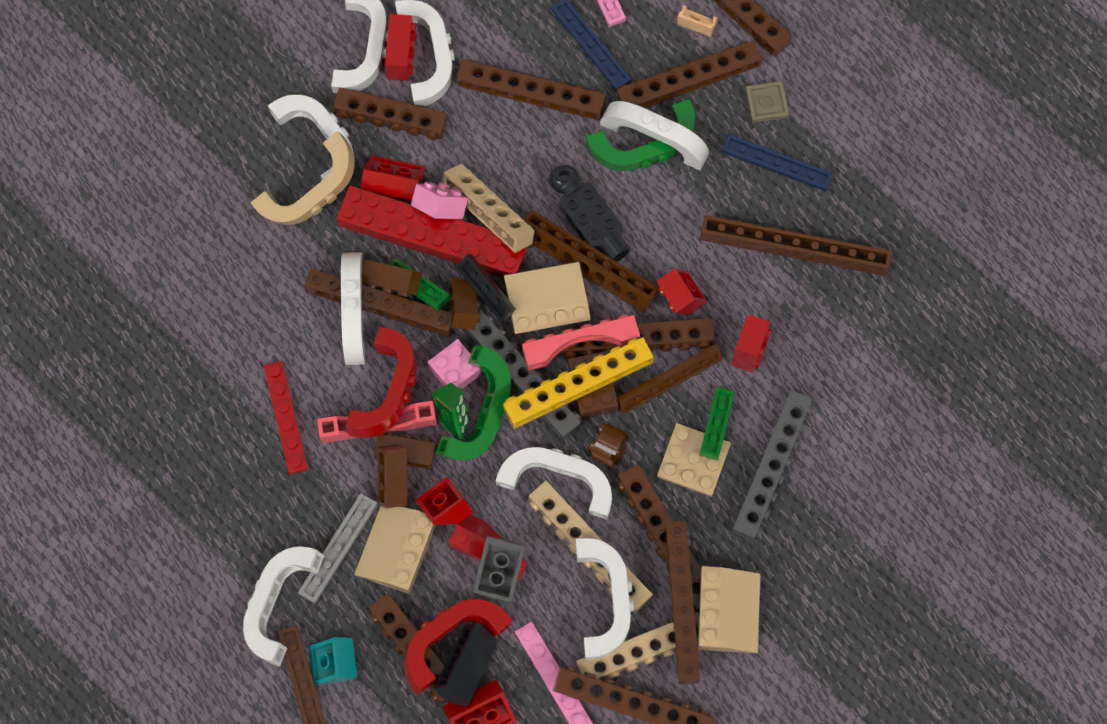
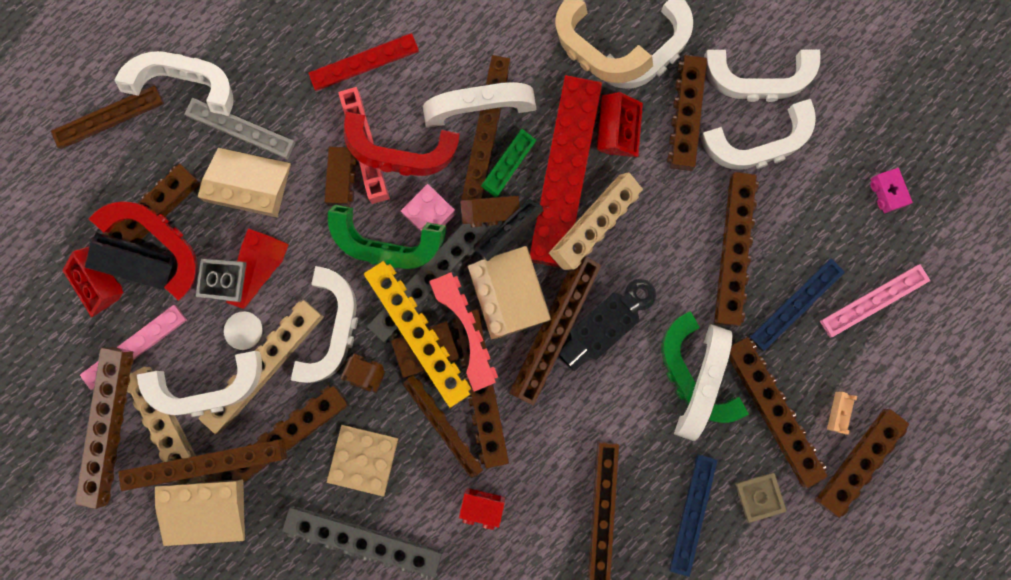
camera: 85 degrees right, 10 degrees up
(333, 661) = (130, 140): teal slope -> none
(390, 278) = (509, 136): reddish brown brick -> none
(392, 476) = (307, 166): reddish brown brick -> none
(400, 47) = (760, 110): red brick -> none
(439, 201) = (595, 171): bright pink brick -> none
(444, 504) = (285, 220): red slope -> none
(451, 409) = (380, 214): green slope -> none
(550, 565) = (243, 330): none -> white dish
(681, 292) = (532, 429): red brick -> none
(717, 423) = (398, 480): green plate -> none

